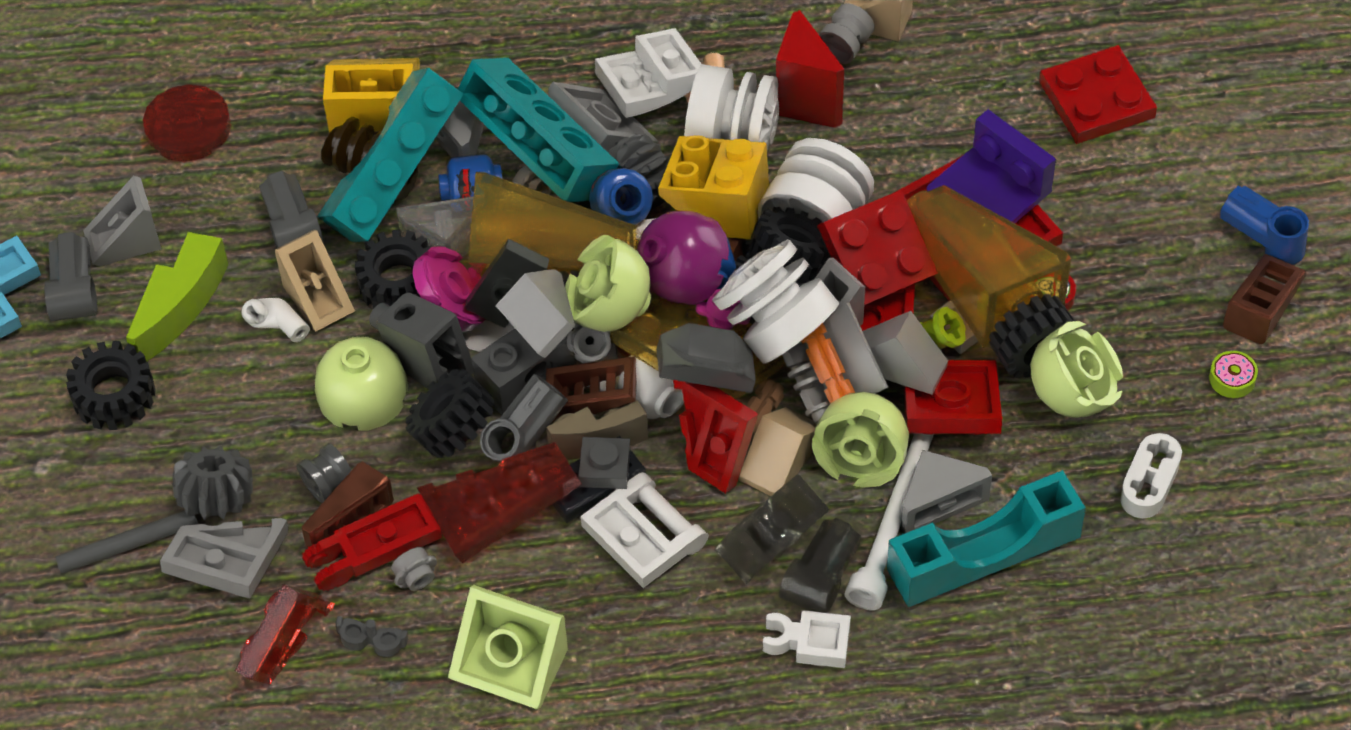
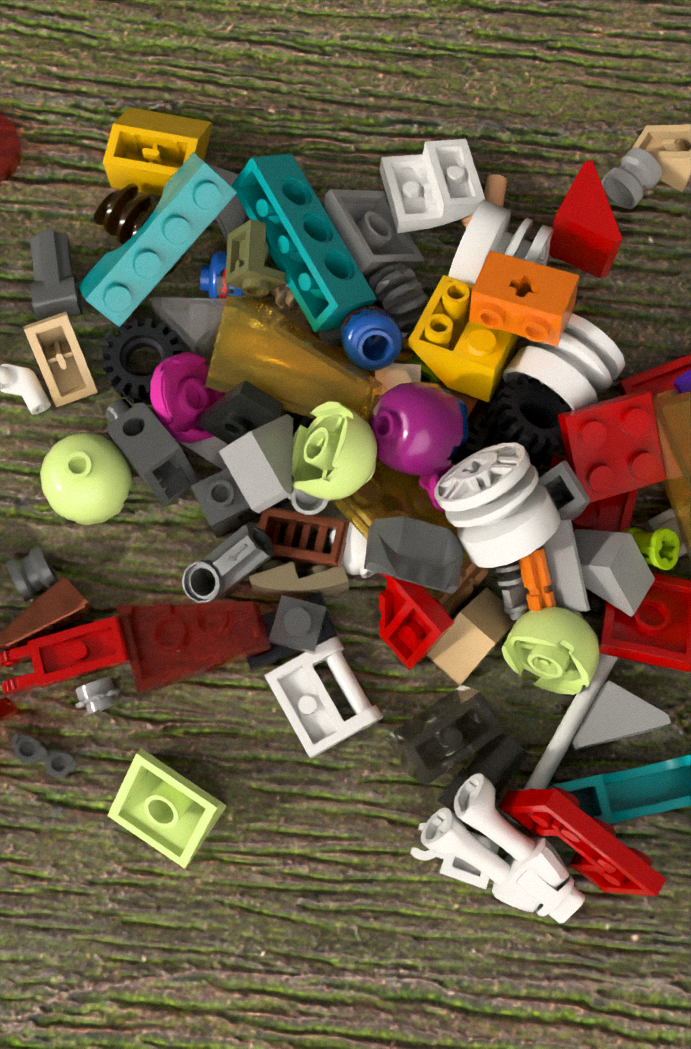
camera: 10 degrees right, 20 degrees up
(449, 413) = (160, 538): black tyre -> none
(485, 150) = (246, 260): none -> olive bracket
(760, 128) = (523, 298): none -> orange brick
(888, 640) = (528, 877): none -> white piece
(966, 593) = (598, 852): none -> red plate

